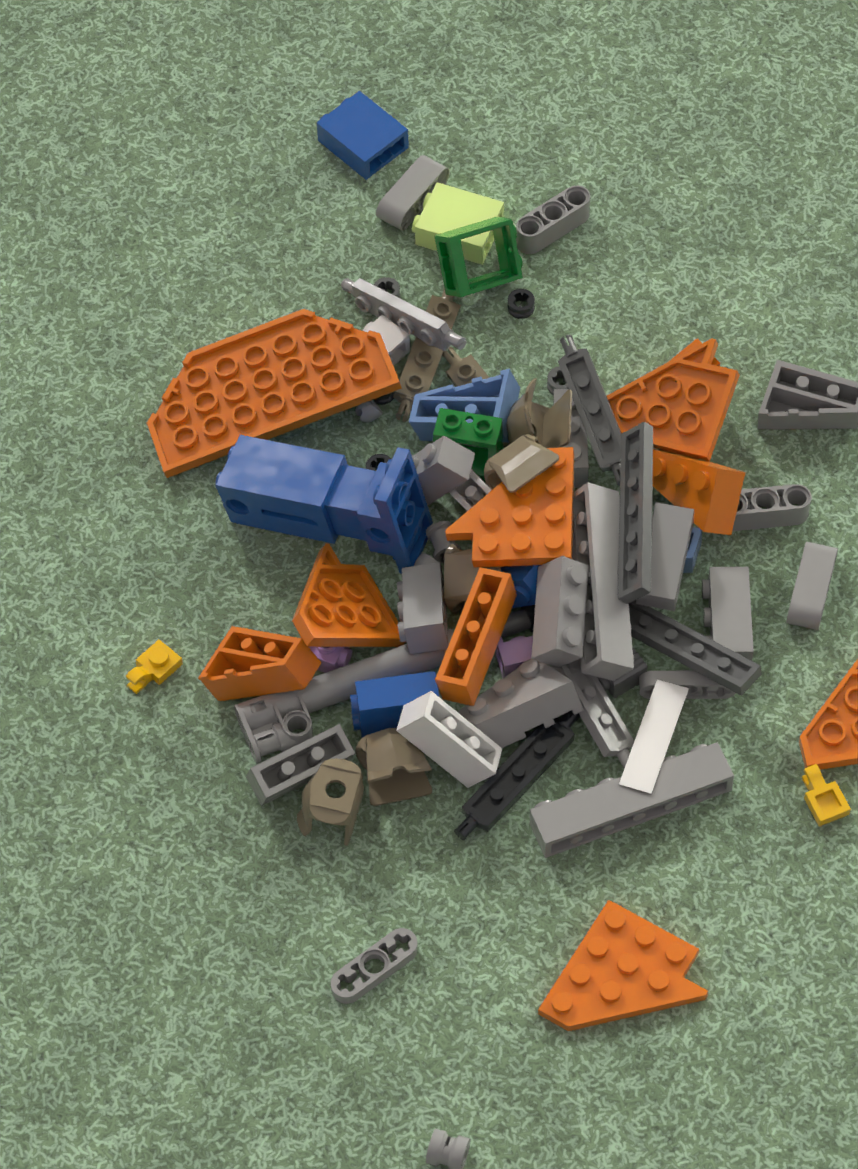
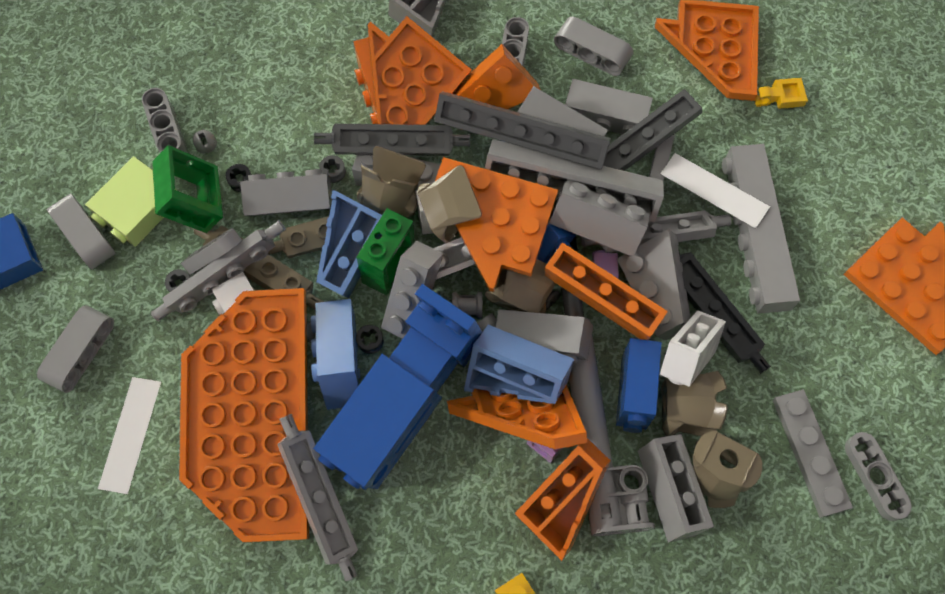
camera: 75 degrees left, 10 degrees up
(200, 464) = (317, 497): none -> light grey plate
(224, 306) = (129, 435): none -> white sticker
(291, 232) = (75, 348): none -> light grey beam
(359, 433) = (335, 351): none -> medium blue wedge
(377, 584) = (517, 367): none -> medium blue wedge
(382, 899) = (812, 453): none -> light grey plate
(419, 299) = (211, 251): none -> light grey beam
(511, 343) = (286, 193): none -> light grey brick
(556, 263) = (207, 148): none -> light grey hinge

